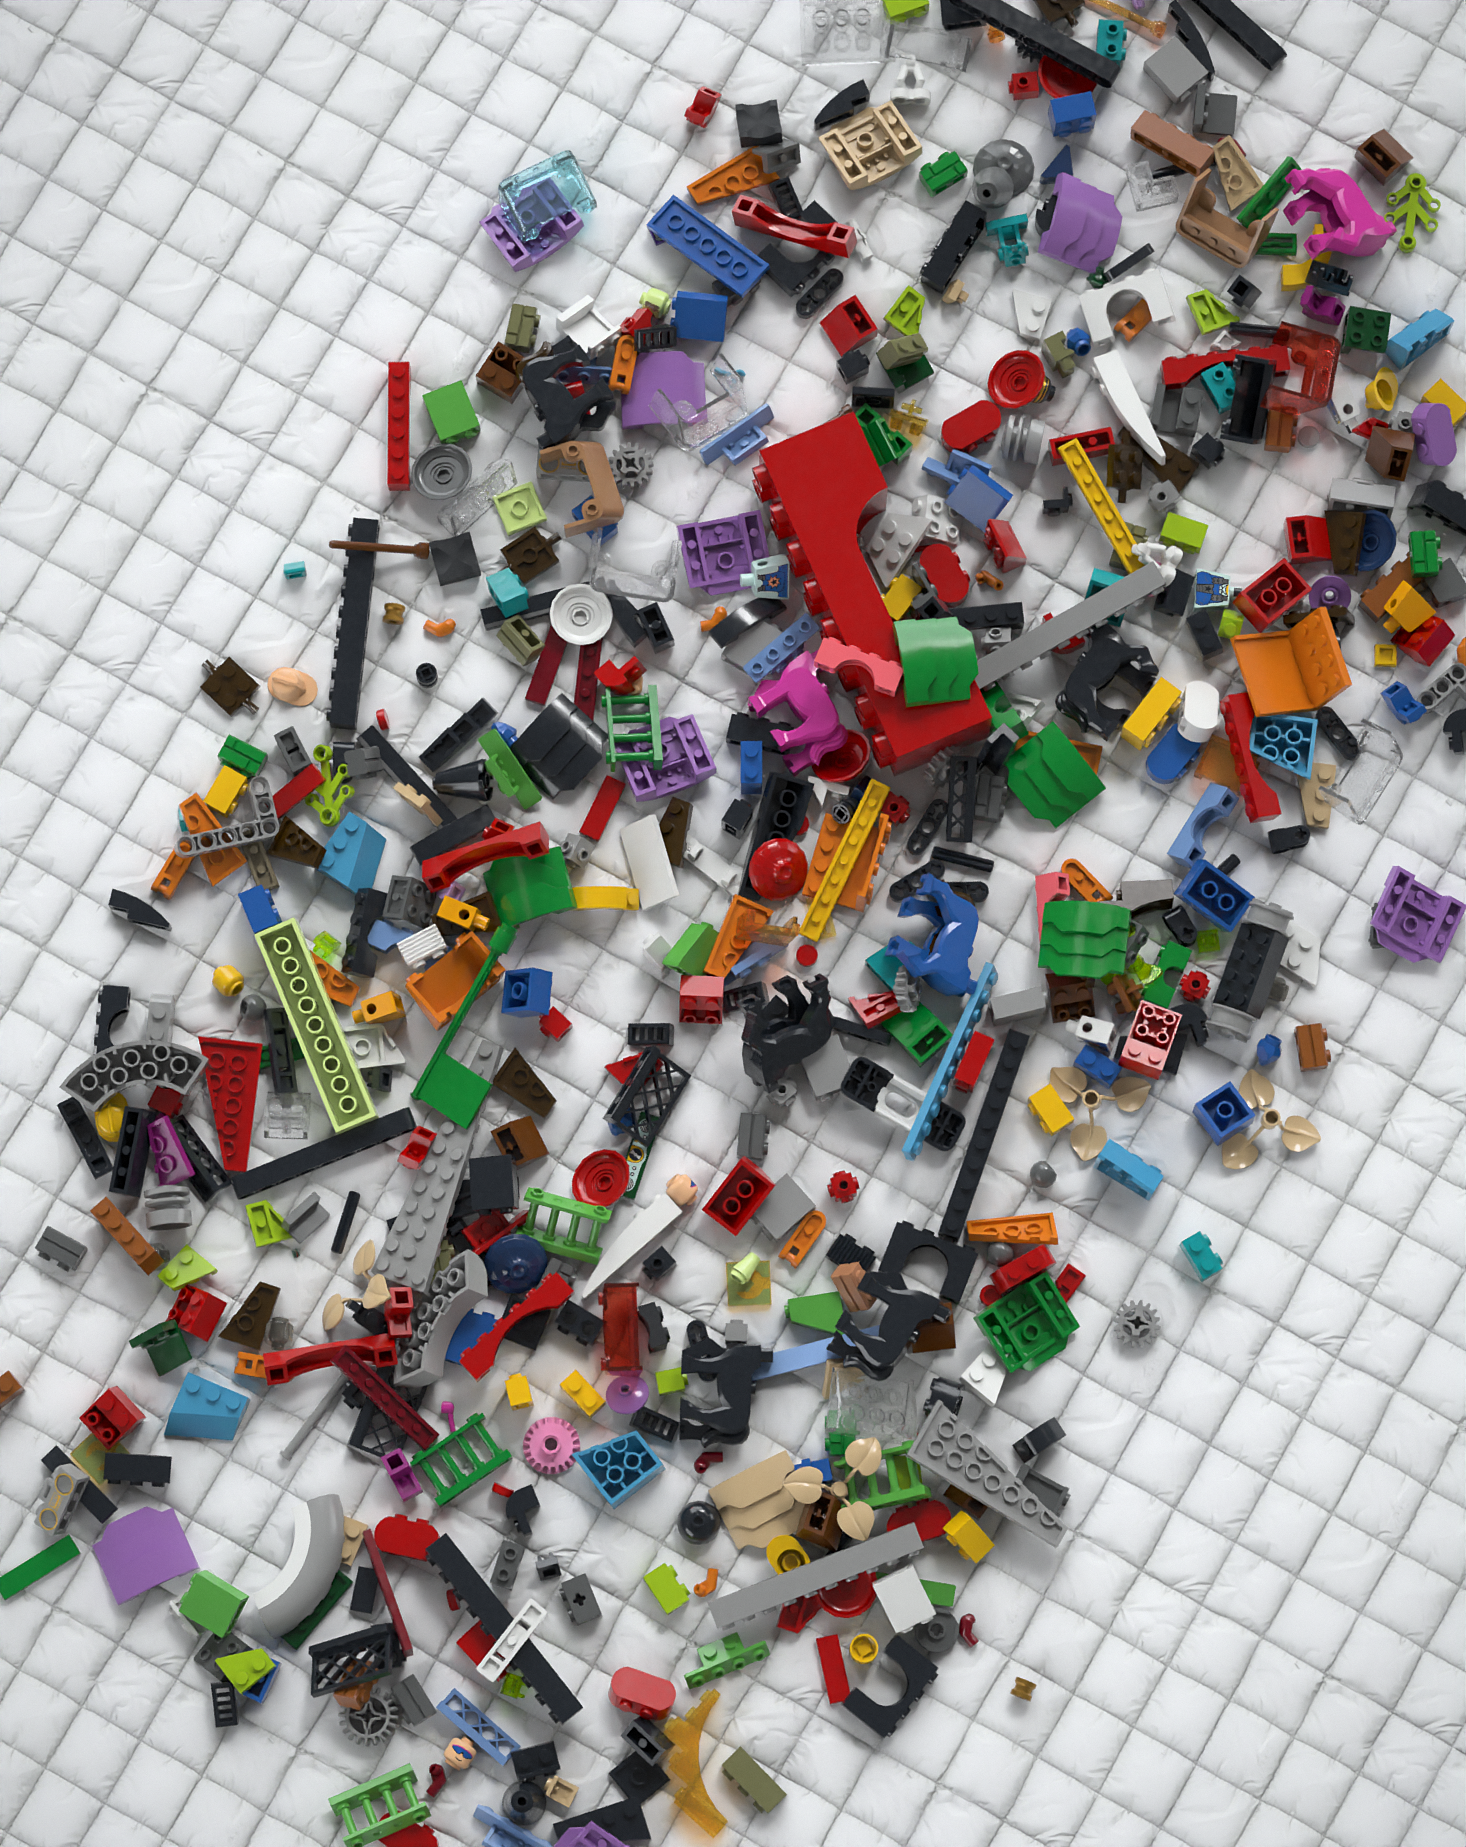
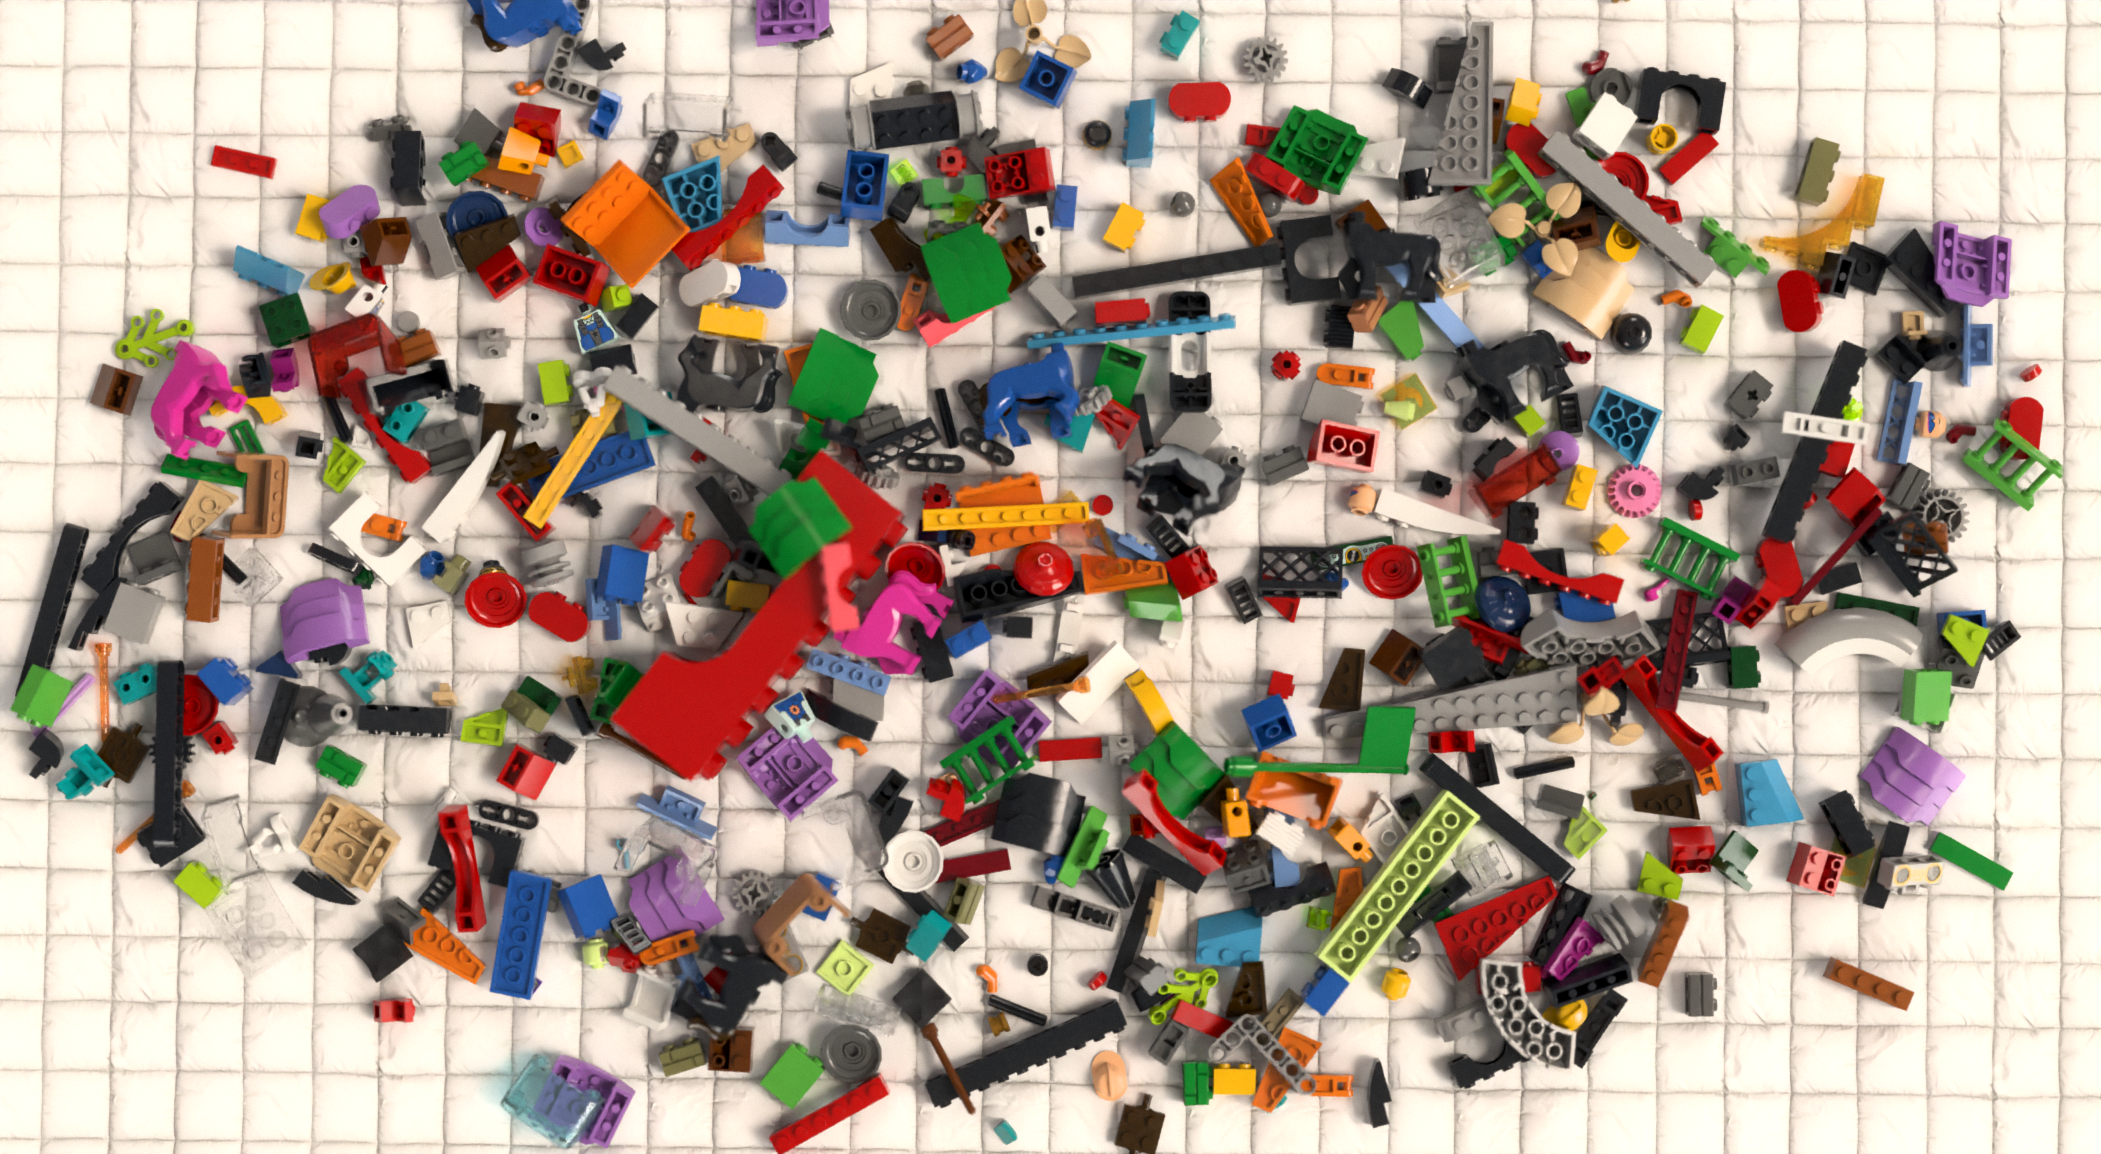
camera: 120 degrees left, 10 degrees up
(334, 1453) = (1743, 667): none -> dark green brick
(379, 1168) = (1483, 766): none -> black hinge
(386, 1495) = (1759, 602): none -> red brick
(396, 637) = (1017, 1010): none -> black axle
(432, 1641) = (1854, 498): none -> red slope
(654, 841) = (1081, 685): none -> clear orange piece
(1012, 140) = (277, 721): none -> black fence
(1069, 1083) = (1090, 224): tan plant -> none
(1086, 541) = (608, 461): none -> blue plate
(1098, 841) = (870, 309): none -> dark grey hat
(1130, 1241) = (1199, 101): none -> red brick
(1149, 1134) = (1097, 135): none -> black piece
(1227, 65) = (105, 569): none -> black arch
(1248, 497) = (493, 343): none -> light grey brick

